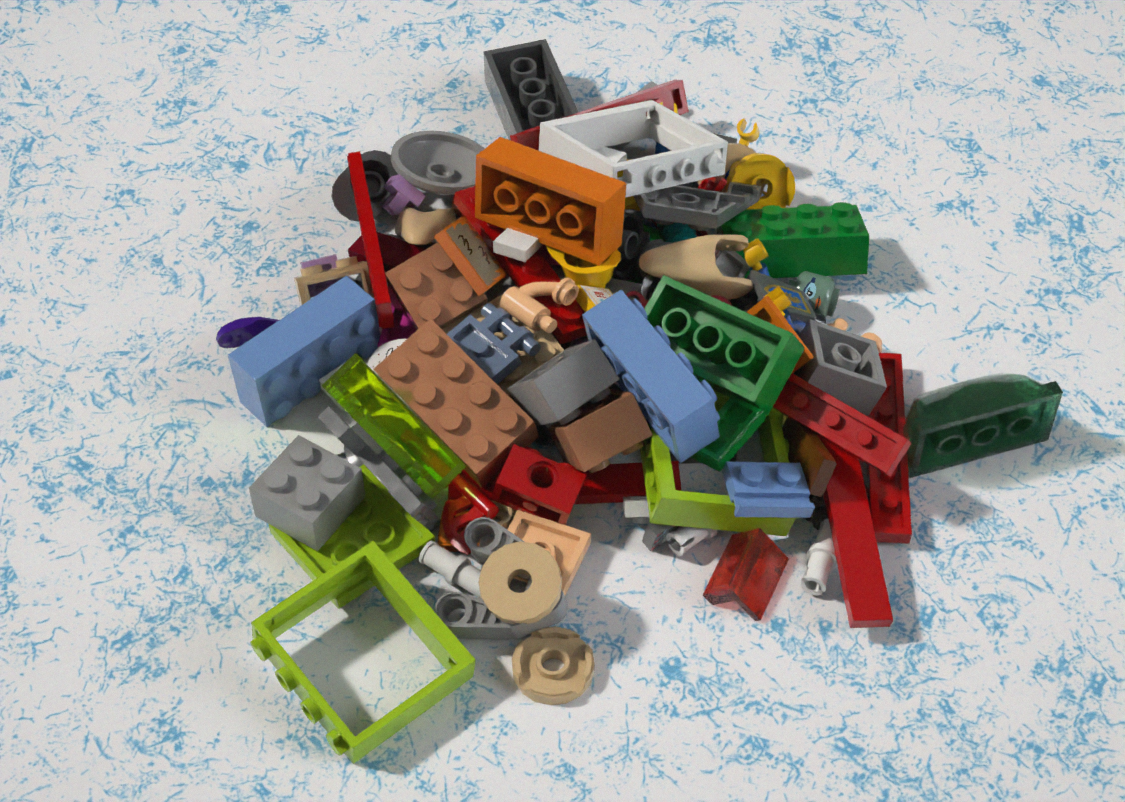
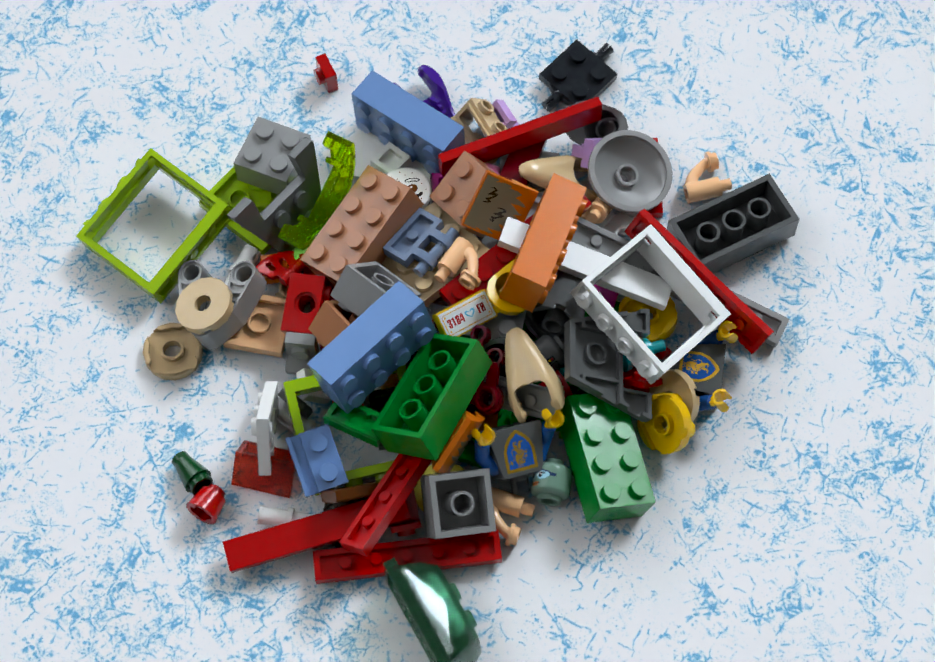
camera: 80 degrees right, 15 degrees up
(186, 436) = (325, 73): none -> red plate
(284, 204) = (577, 75): none -> black plate
(470, 119) = (707, 188): none -> light nougat plant
(594, 511) = (300, 351): none -> light grey bracket
(703, 540) = (265, 425): none -> white wing
(744, 655) = (191, 472): none -> dark green cone
(791, 640) = (207, 503): none -> red hat

